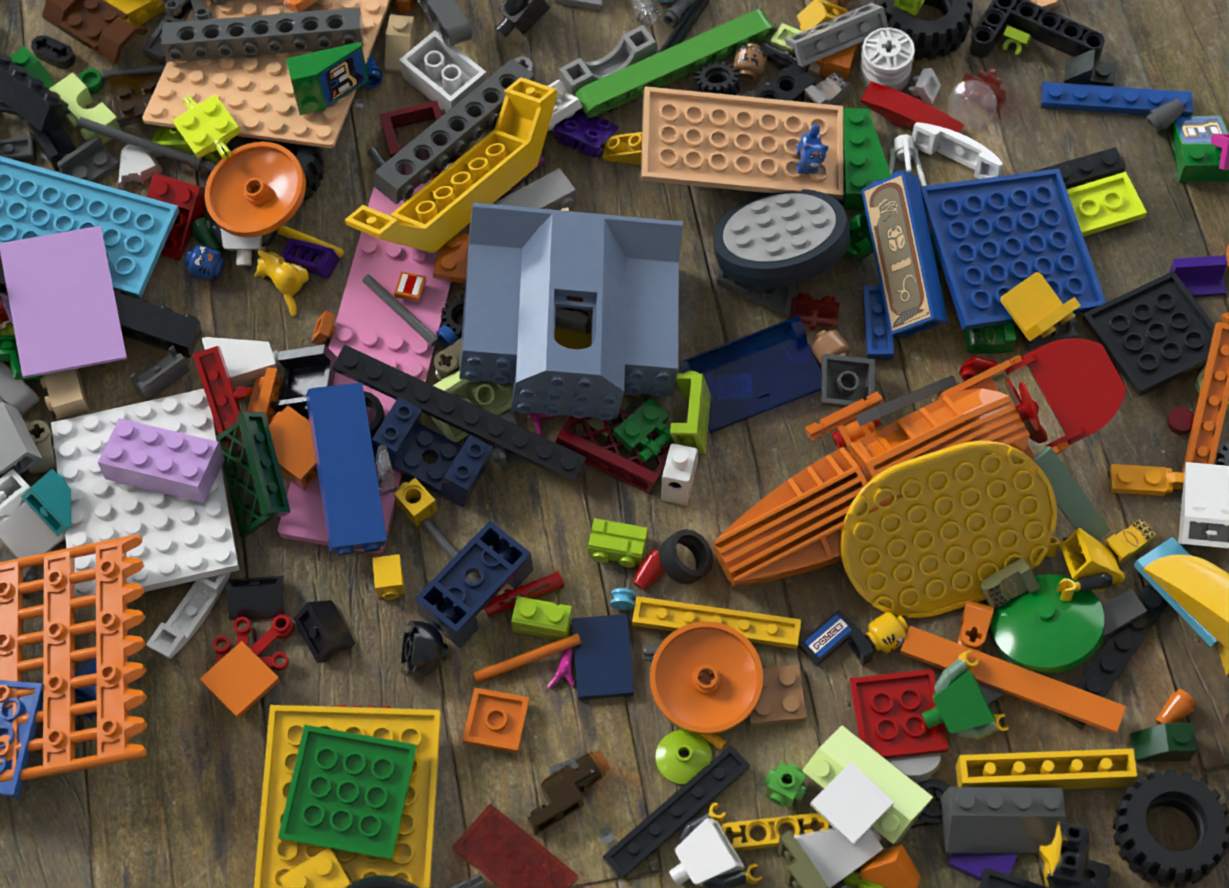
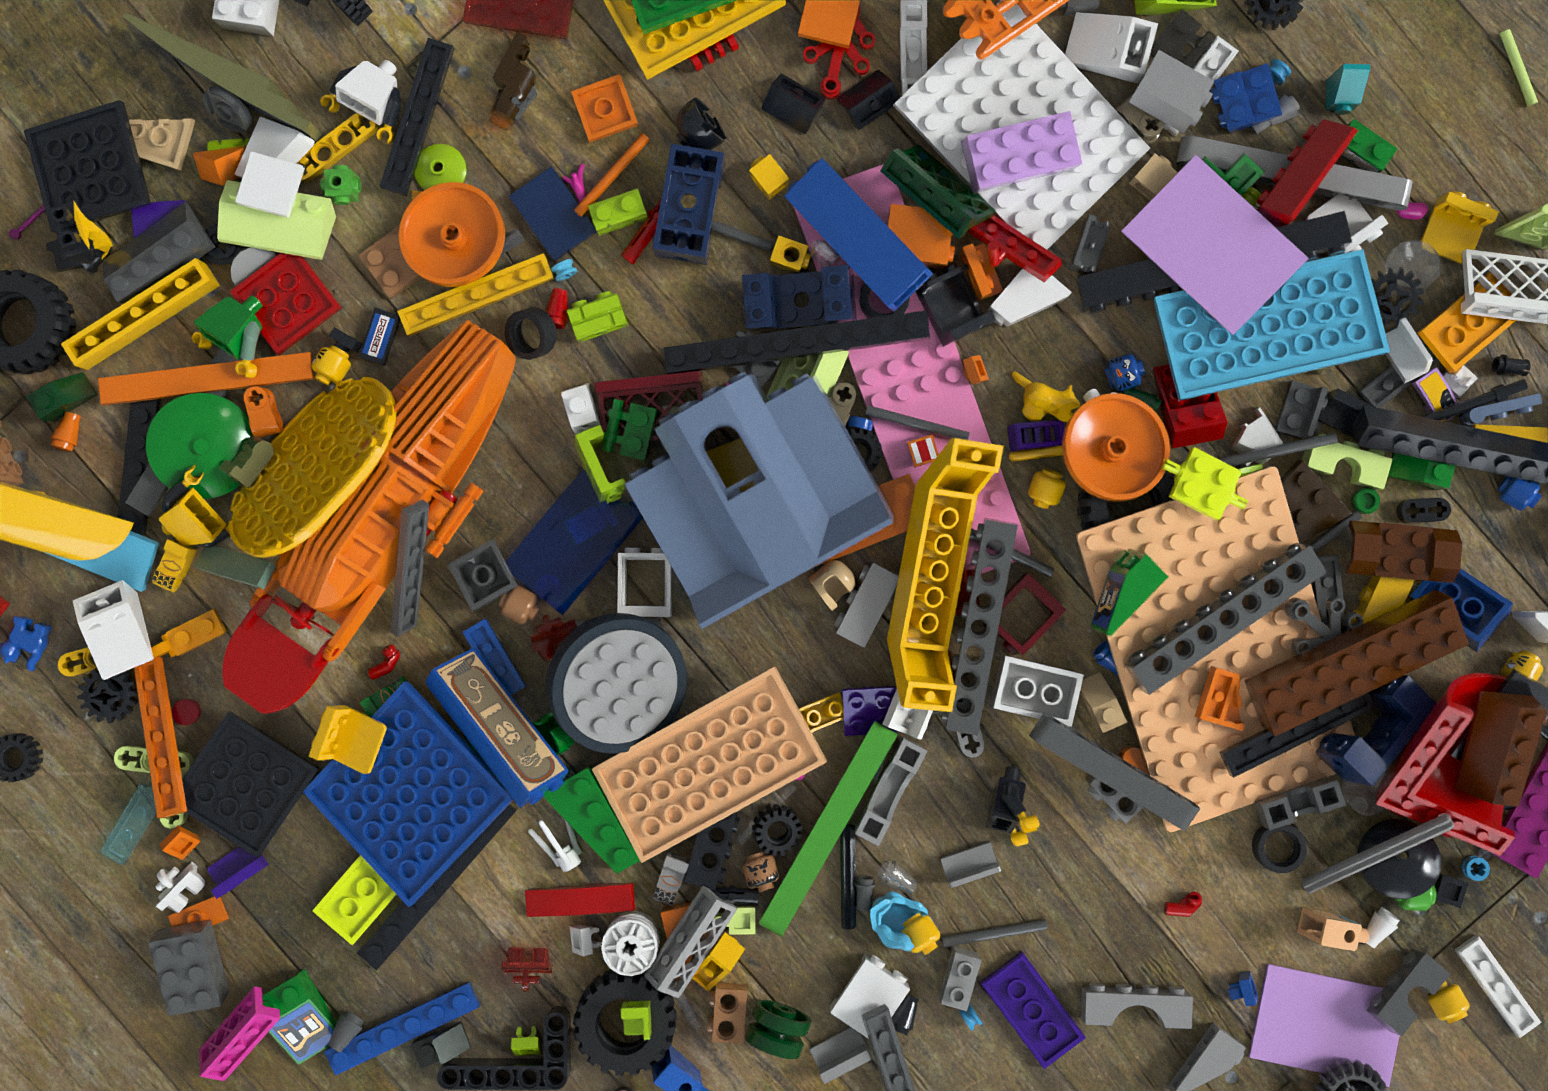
camera: 150 degrees right, 25 degrees up
(51, 501) = (1091, 67): teal slope -> none
(329, 211) = (1047, 488): none -> yellow head
(721, 290) = (643, 611): none -> white window
(811, 151) = (635, 783): blue animal -> none
(957, 147) = (512, 884): white slope -> none
(972, 104) = (527, 939): clear dish -> none

